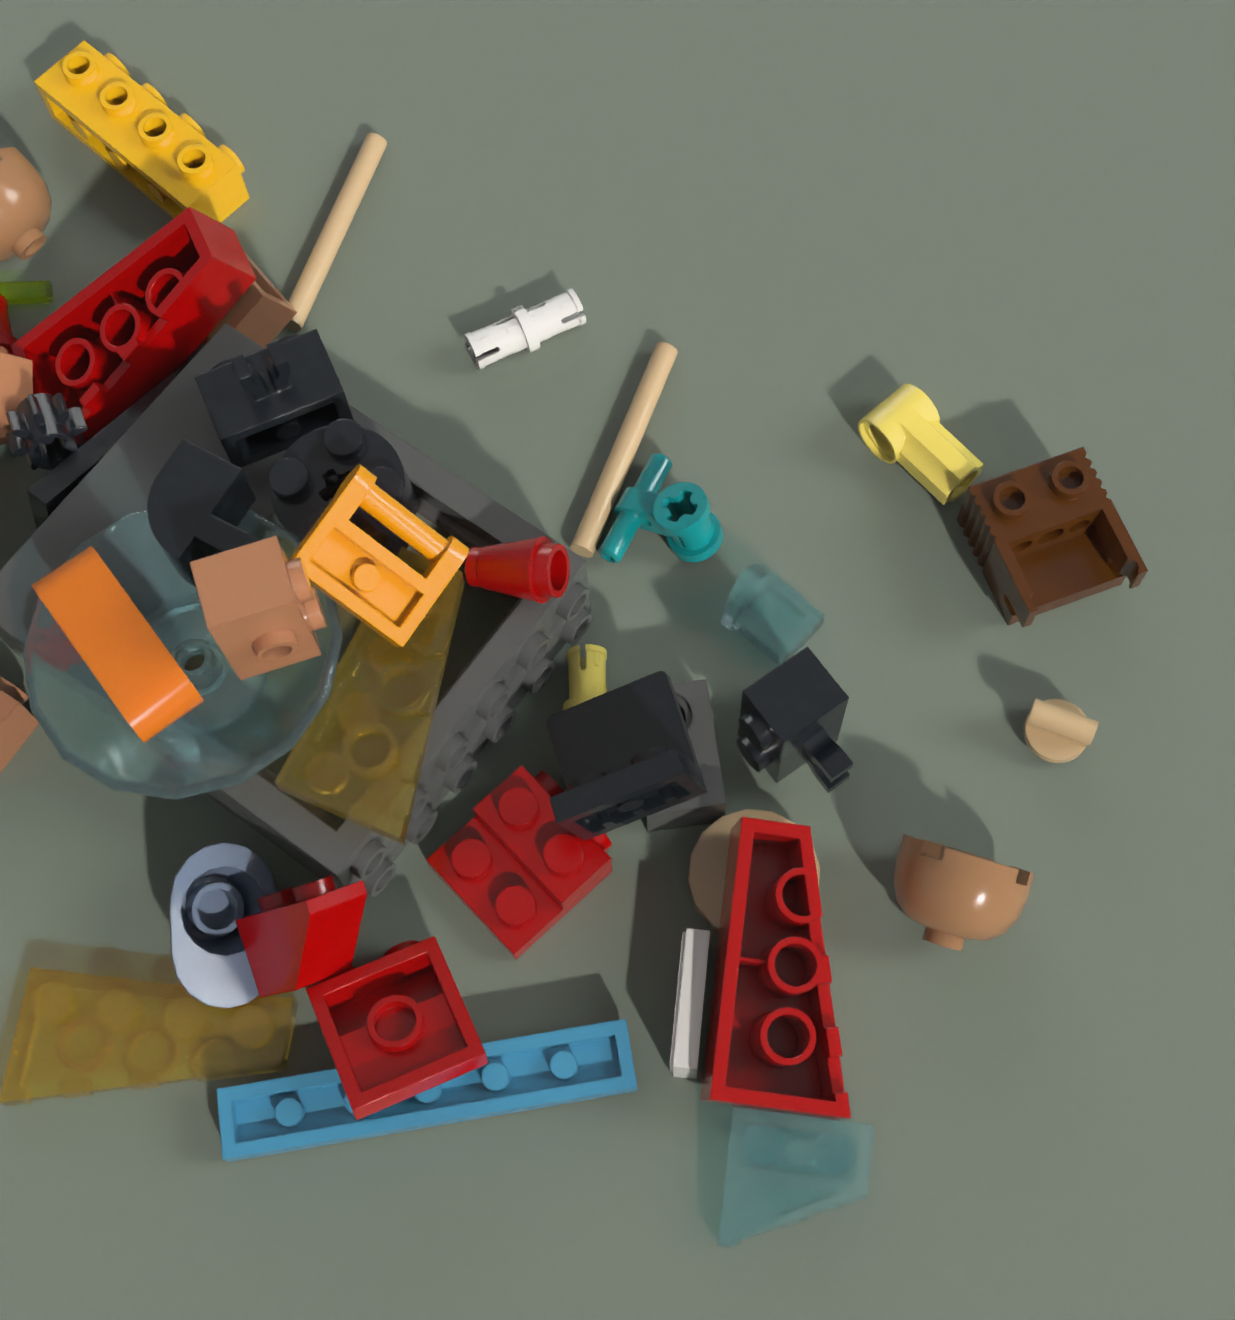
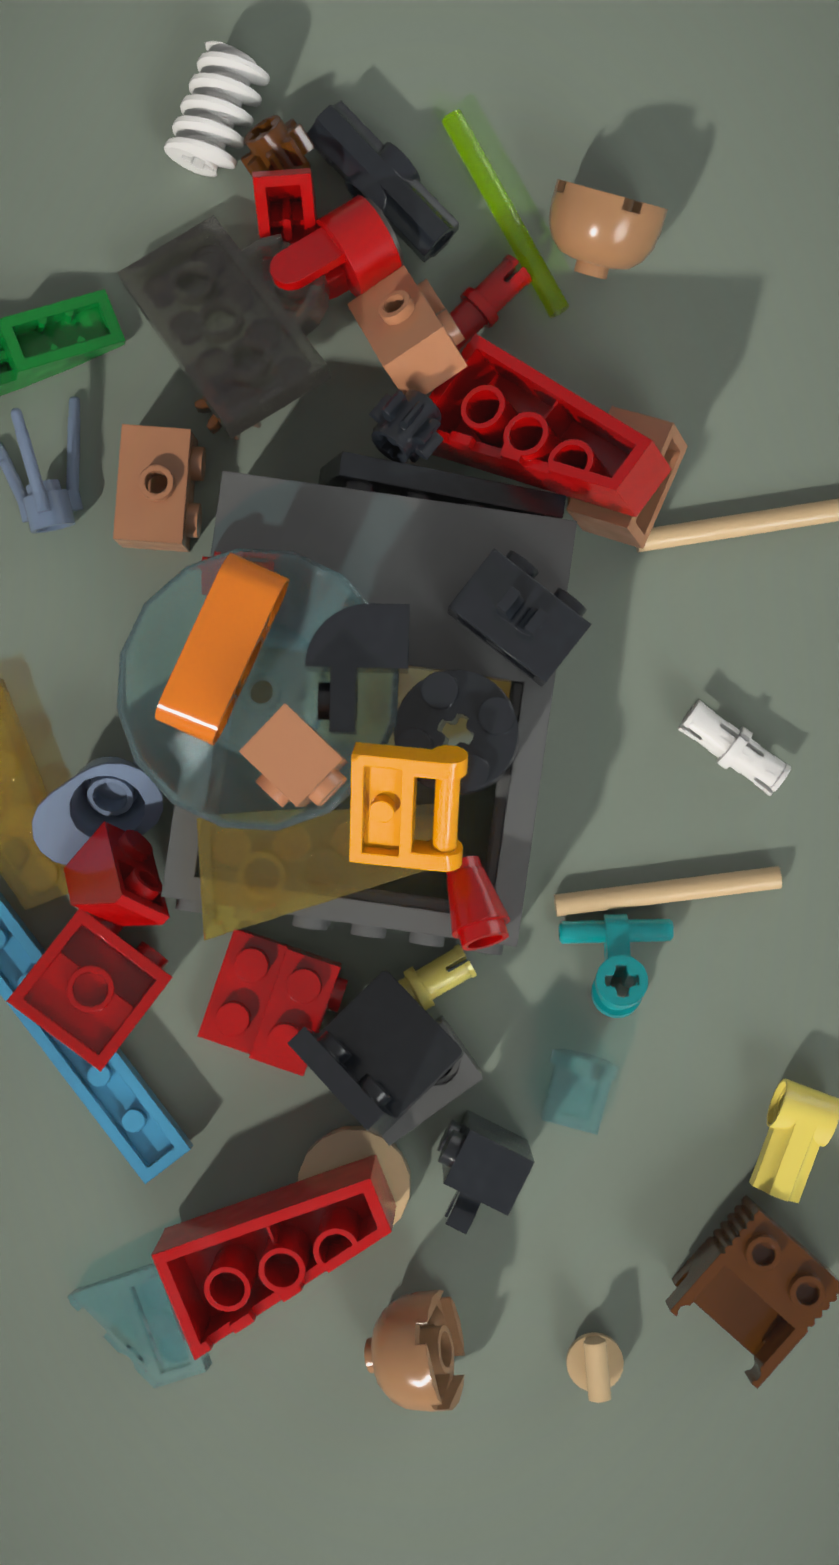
camera: 55 degrees right, 20 degrees up
(141, 136) = (747, 300): yellow brick -> none
(689, 1003) = (227, 1189): white tile -> none

